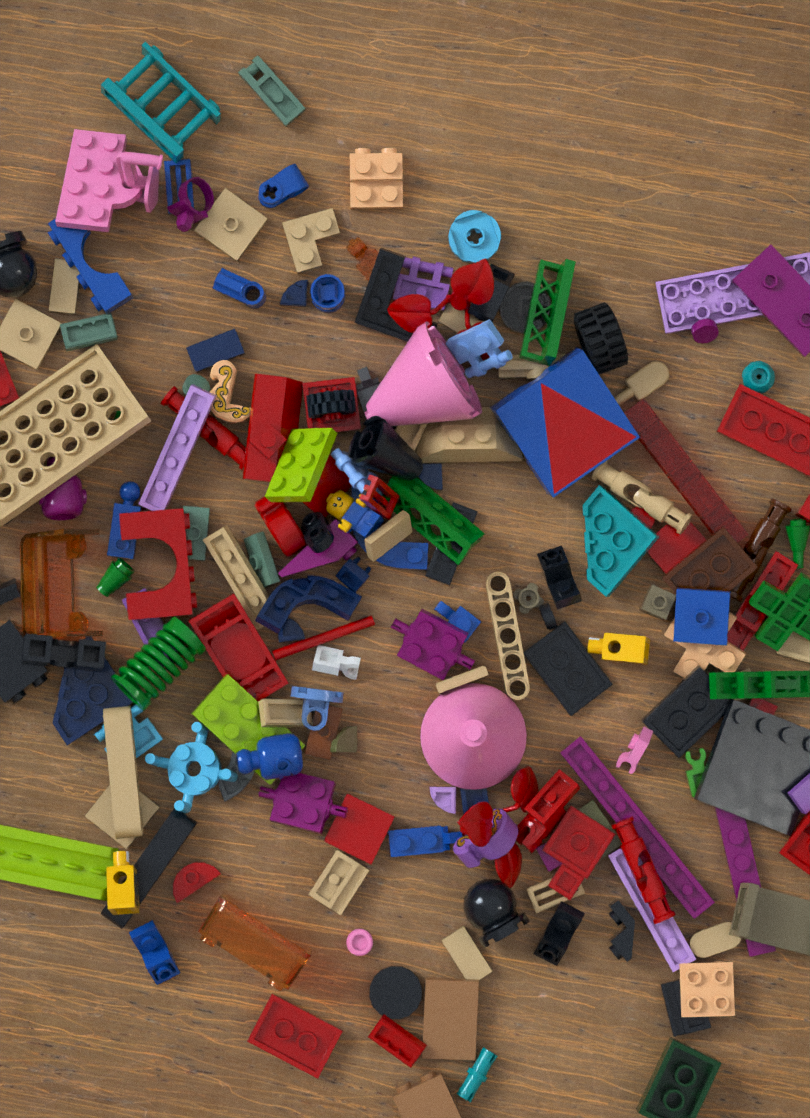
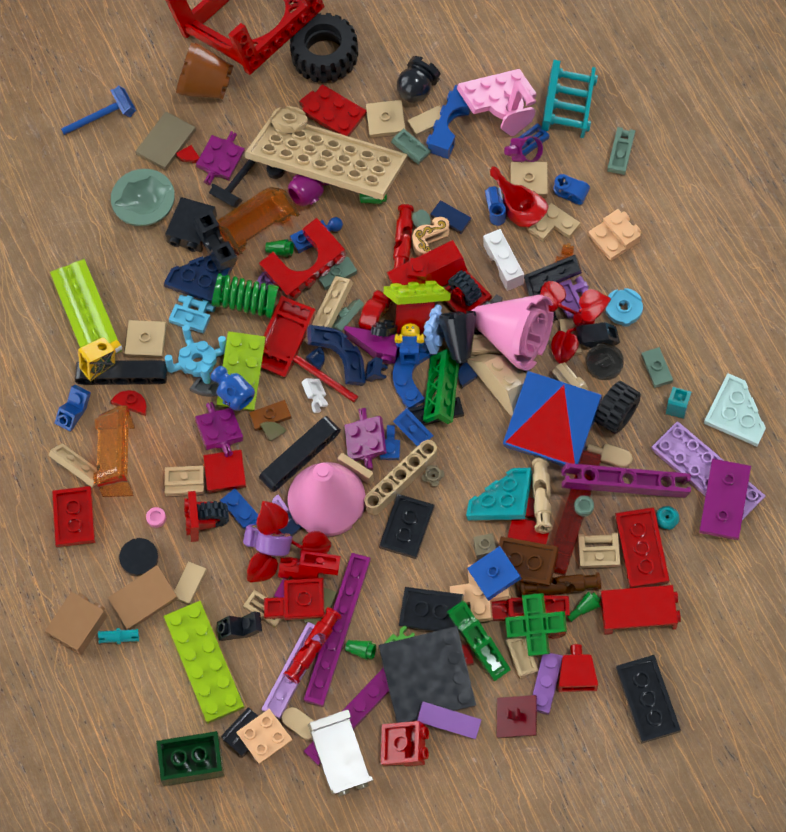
camera: 65 degrees right, 20 degrees down
(123, 772) = (167, 319): tan beam -> none
(177, 449) = (379, 228): lavender plate -> none
(231, 993) = (74, 463): none -> tan plate
(263, 257) = (522, 205): none -> red hat
(282, 713) = (265, 384): tan tile -> none
(295, 295) = (515, 238): dark blue tile -> none
(316, 700) = (284, 393): medium blue tile -> none
(318, 329) = (501, 253): none -> white arch
(327, 293) = (528, 249): blue wheel -> none
(371, 493) = (428, 332): red tile -> none
(388, 535) = (411, 370): tan tile -> none
(397, 1041) = (109, 576): red plate -> none
(398, 730) = (299, 453): none -> black beam
(402, 891) = (203, 515): none -> plate
(458, 582) = (412, 427): none -> blue plate
(475, 342) = (562, 341): light blue plate -> none
(492, 908) = (227, 573): black tile -> none
(548, 616) = (430, 492): black tile -> none
(557, 311) = (611, 374): green fence -> none
(559, 577) = (459, 483): black slope -> none
(570, 998) = (204, 662): none -> lime plate
(586, 256) = (657, 367): none -> sand green plate
(623, 939) = (263, 666): black slope -> none
(633, 262) = (678, 402): none -> teal slope
(633, 648) = (442, 546): yellow torso -> none
(637, 745) = (387, 594): bright pink plate -> none
(678, 816) = (362, 649): none -> green cone
(683, 407) = (611, 480): none -> magenta piece
(690, 209) = (736, 412): none -> light aqua plate
(690, 461) = (584, 506): none -> sand green tile
(704, 331) = (670, 465): magenta tile -> none
(753, 482) = (599, 556): none -> tan plate

